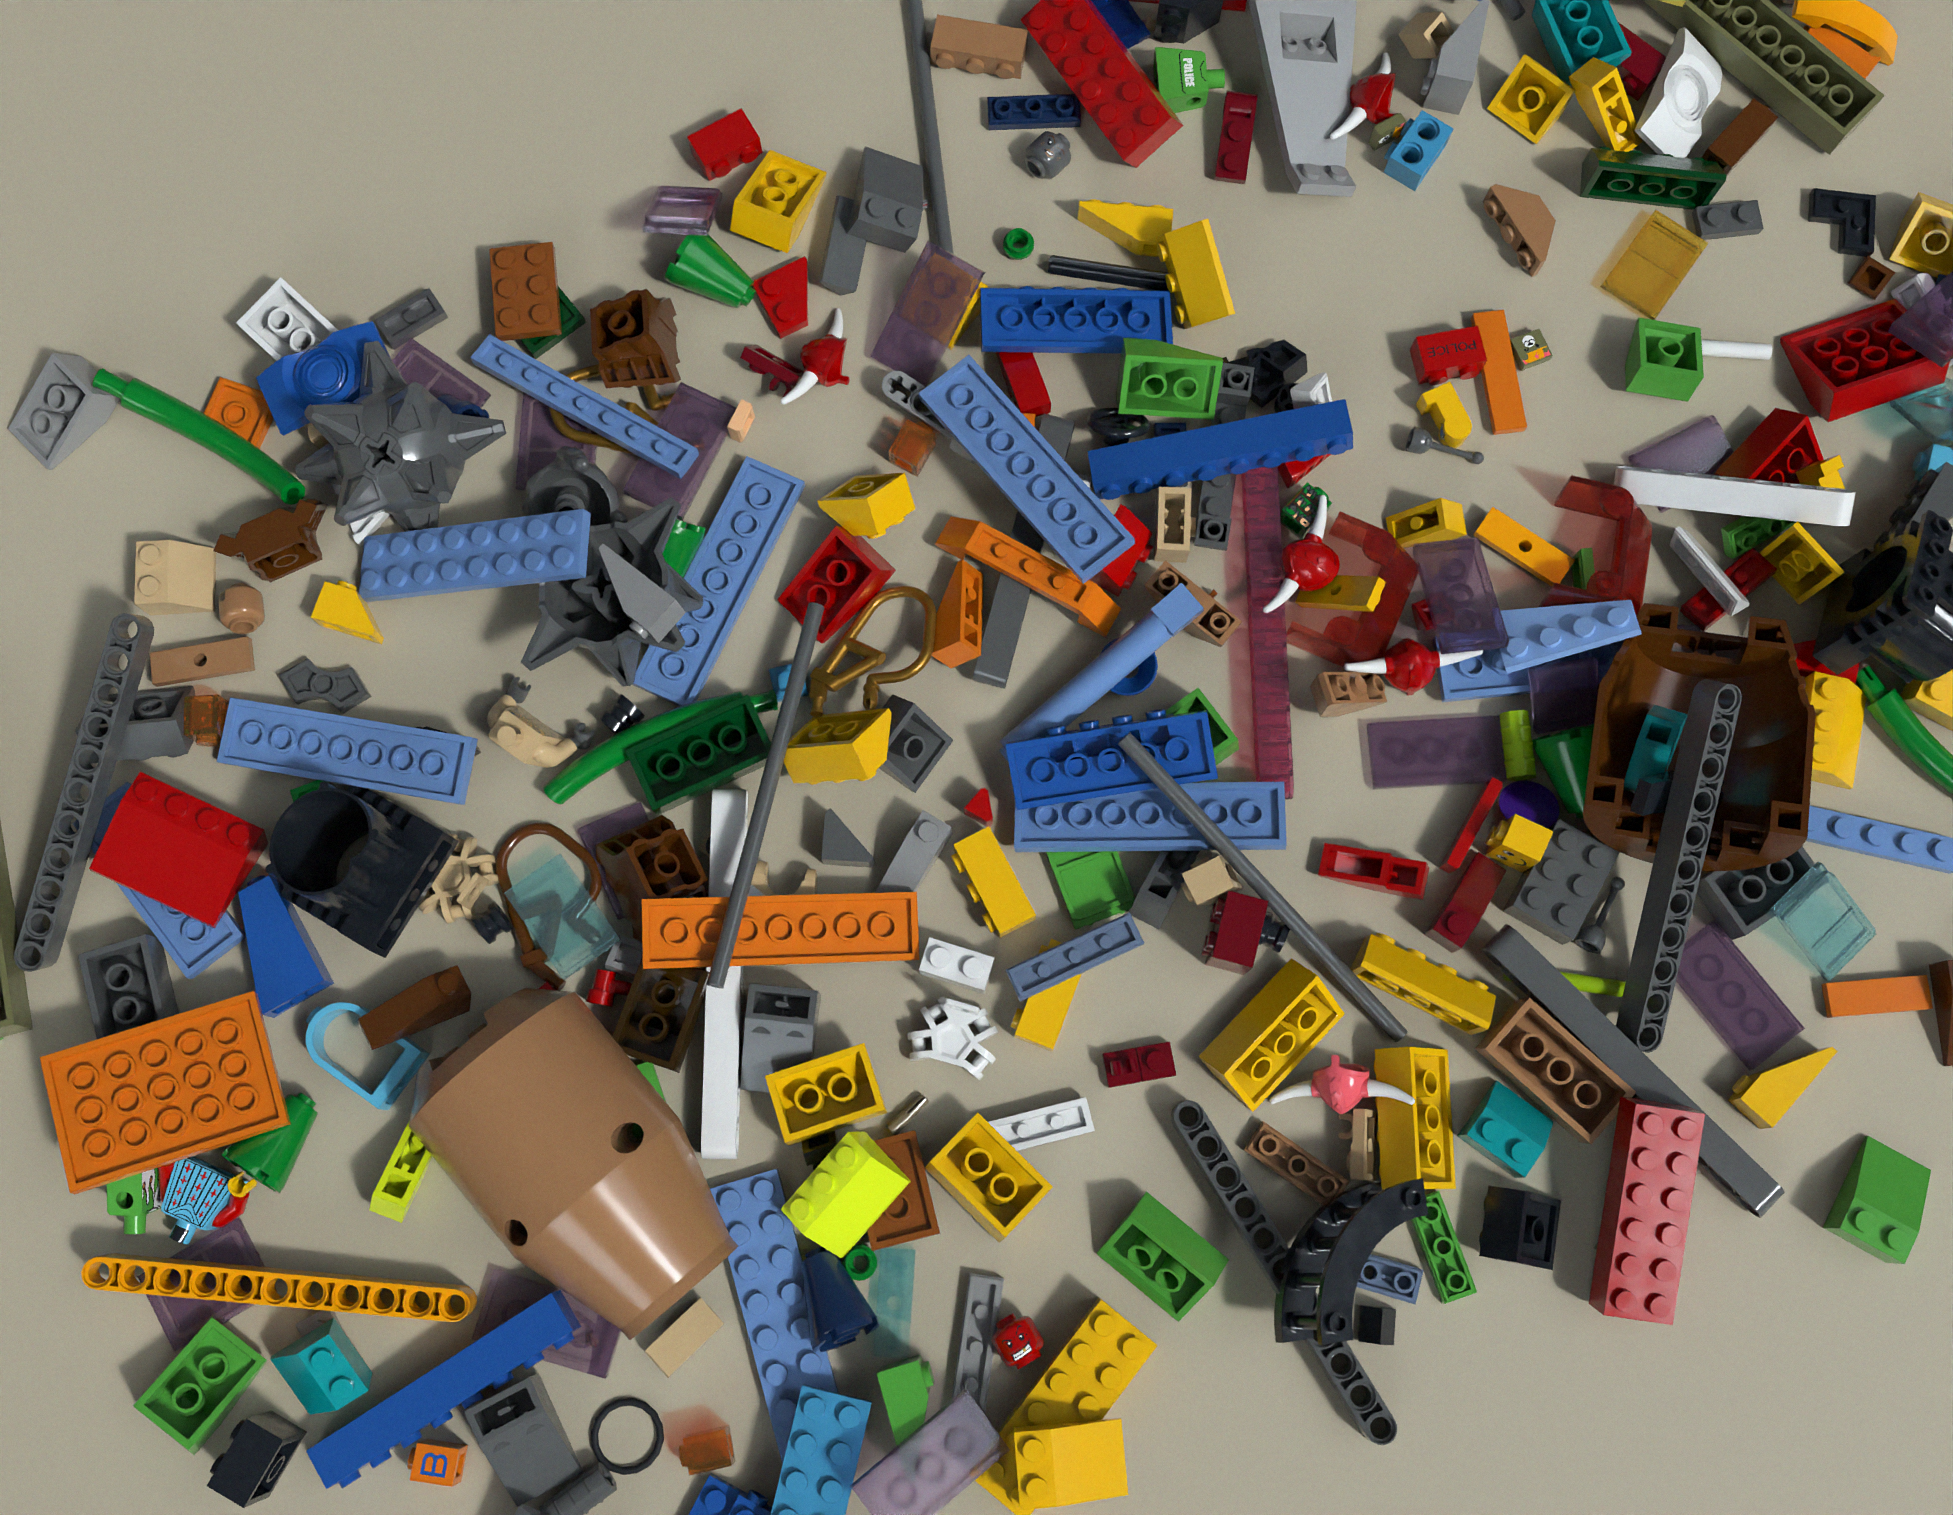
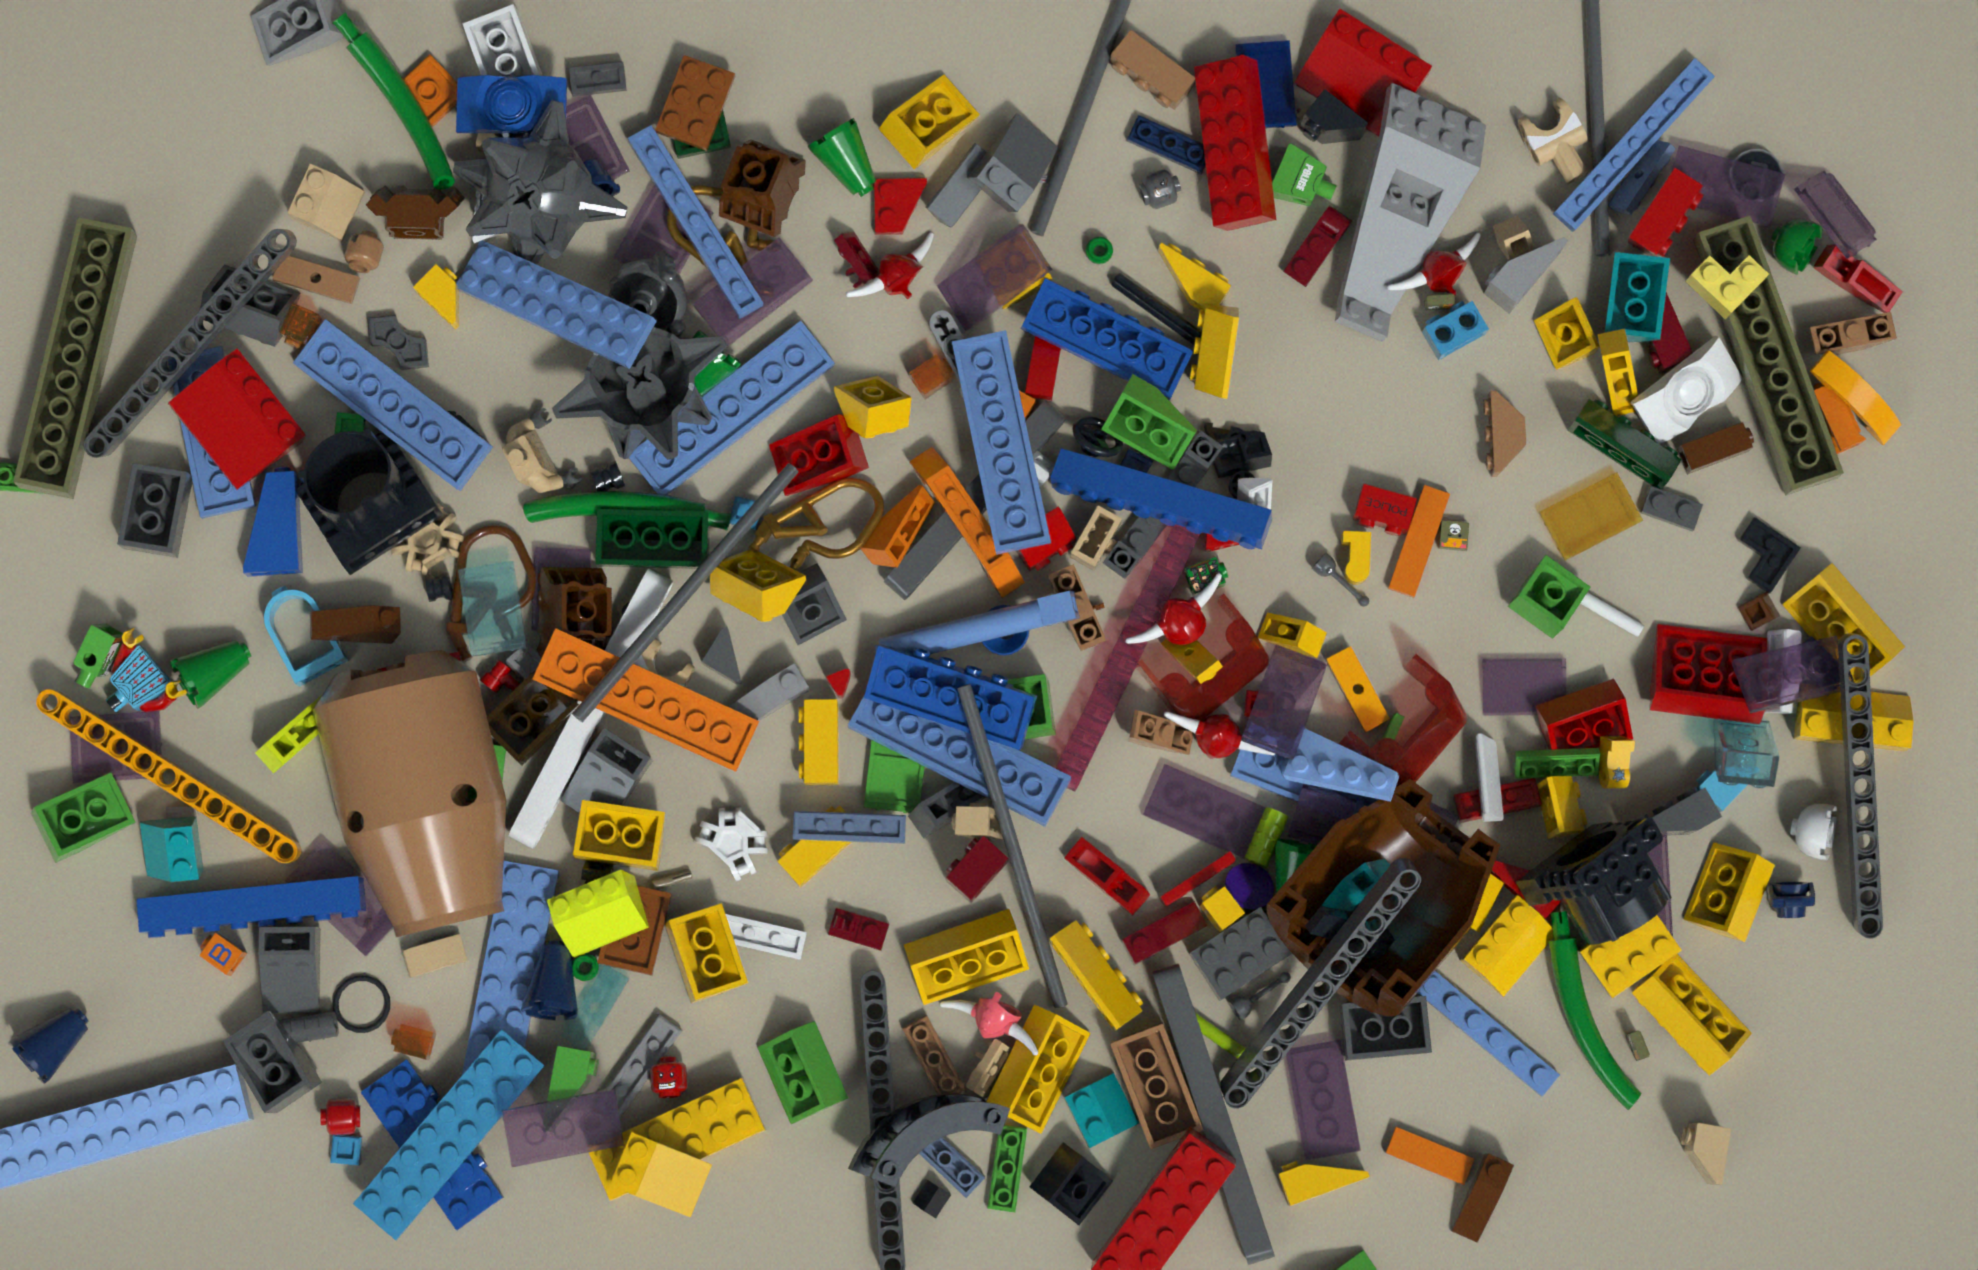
camera: 25 degrees right, 5 degrees up
(164, 1092) = (153, 596): orange plate -> none
(255, 1458) = (100, 886): black brick -> none
(643, 601) = (660, 407): light grey slope -> none
(682, 210) = (847, 99): clear purple piece -> none
(725, 145) = (910, 55): red brick -> none
(741, 421) = (810, 290): light nougat tile -> none
(956, 965) = (761, 790): white brick -> none
(1273, 932) = (1005, 883): black wheel -> none
(1737, 495) = (1529, 731): white beam -> none
(1824, 921) = (1415, 1080): clear light blue piece -> none

